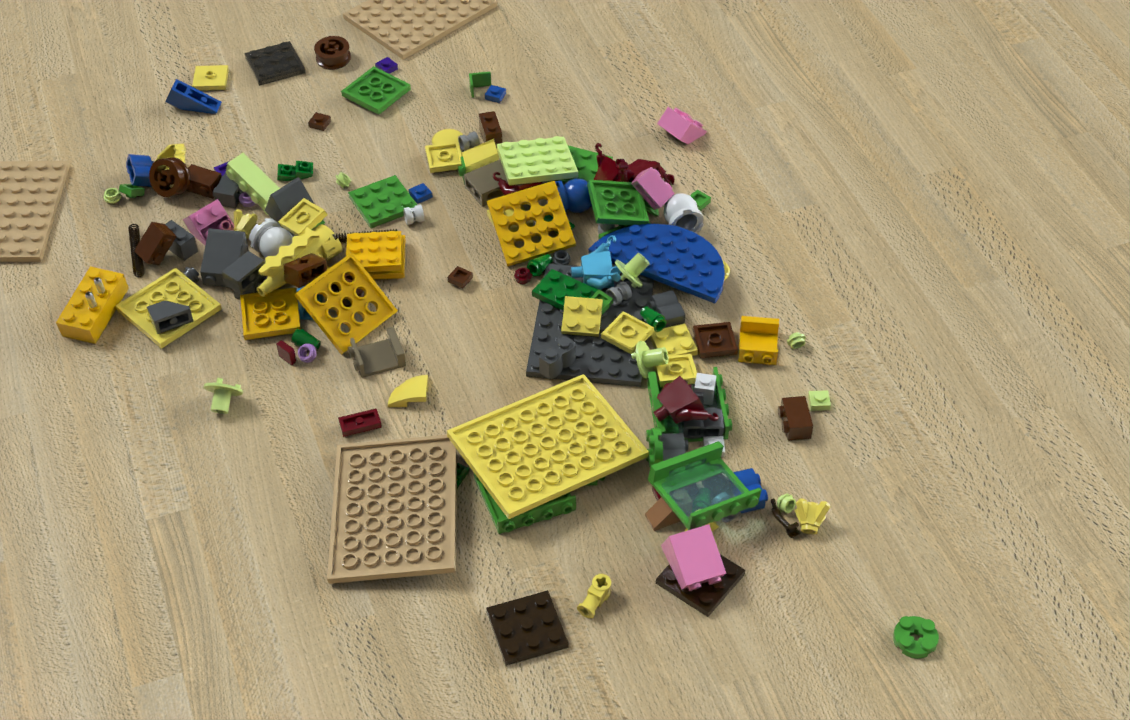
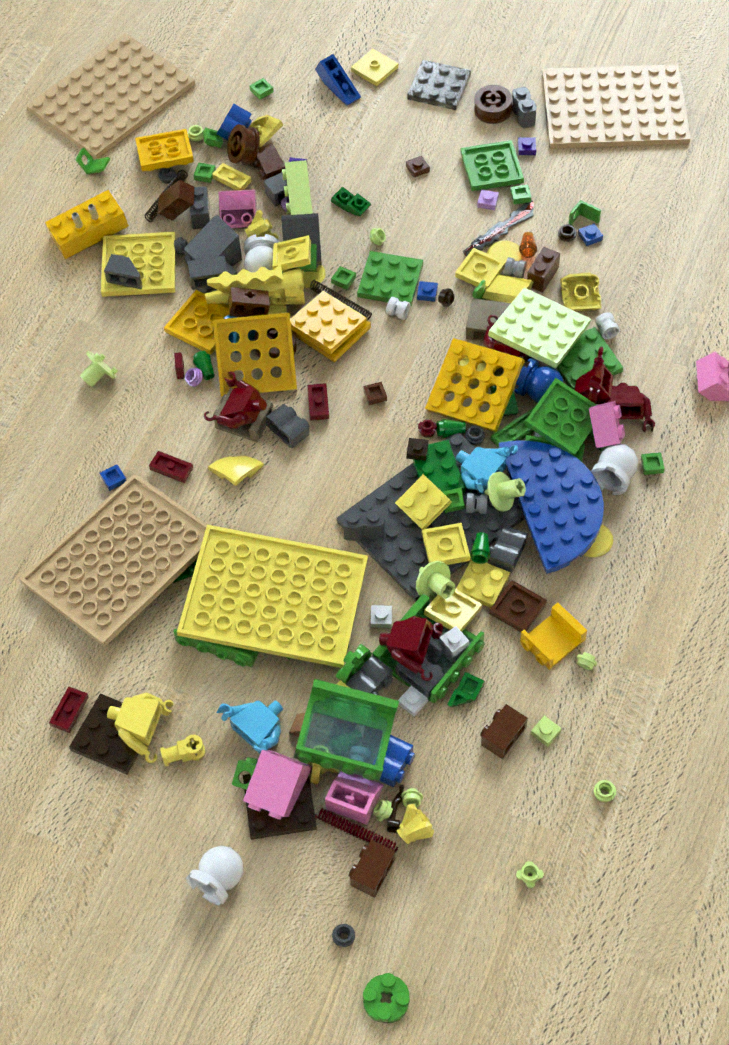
camera: 45 degrees right, 10 degrees up
(47, 265) = (92, 165): none -> bright green bracket
(100, 219) = (164, 150): none -> yellow plate
(120, 236) = (166, 175): none -> dark grey plate
(134, 137) = (261, 88): none -> bright green plate
(152, 215) = (204, 172): none -> bright green plate
(179, 207) = (231, 177): none -> light yellow plate
(321, 460) = (113, 477): none -> blue plate
(348, 220) = (343, 278): none -> bright green plate
(359, 42) = (524, 107): none -> dark grey brick
(372, 341) = (242, 405): none -> dark red torso
(397, 113) = (488, 199): none -> lavender plate
(418, 96) = (520, 194): none -> bright green plate
(420, 337) = (288, 425): none -> dark grey brick
(424, 308) = (318, 401): none -> dark red plate
(427, 126) = (501, 228): none -> sword
(441, 187) = (446, 297): none -> dark brown plate
(461, 123) = (528, 245): none -> clear orange cone
(474, 637) = (68, 709): none -> dark red plate
(478, 101) = (567, 233): none -> dark brown plate
(530, 127) = (581, 292): none -> light yellow slope
(540, 285) = (417, 449): none -> dark brown plate
(543, 599) = (138, 721): none -> light yellow torso
(574, 139) = (606, 324): none -> white wheel
(586, 236) = (514, 431): none -> bright green tile
(628, 538) = (255, 723): none -> medium azure torso
(630, 411) = (381, 616): none -> white plate
(657, 564) = (244, 765): none -> bright green bracket
(719, 652) = (218, 872): none -> white tile
(741, 413) = (467, 690): none -> green slope
(750, 531) = (353, 797): none -> bright pink slope
(774, 552) = (352, 826): none -> dark red piece
(777, 524) = (382, 810): none -> yellowish green plate
(813, 564) = (372, 868): none -> reddish brown brick
(843, 616) = (343, 928): none -> dark grey plate
(896, 406) = (605, 785): none -> yellowish green plate
(915, 488) = (529, 867): none -> yellowish green plate

